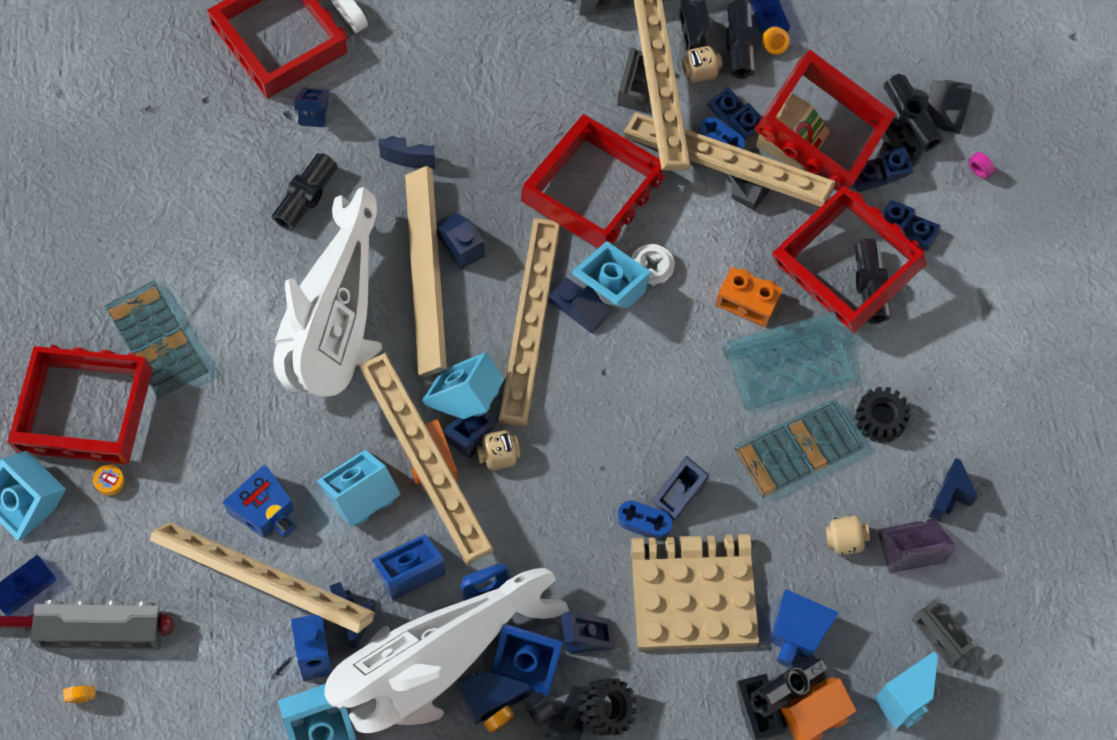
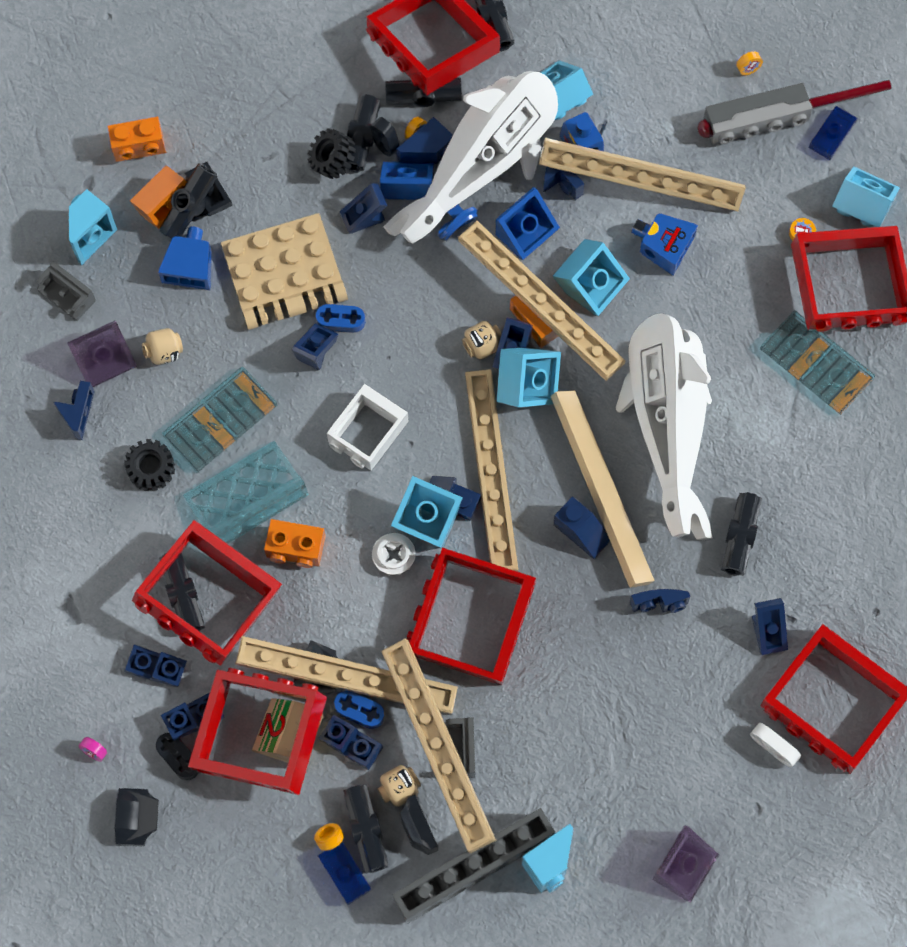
camera: 170 degrees right, 5 degrees up
(626, 408) = (380, 405): none -> white window
(907, 100) = (182, 802): black piece -> none

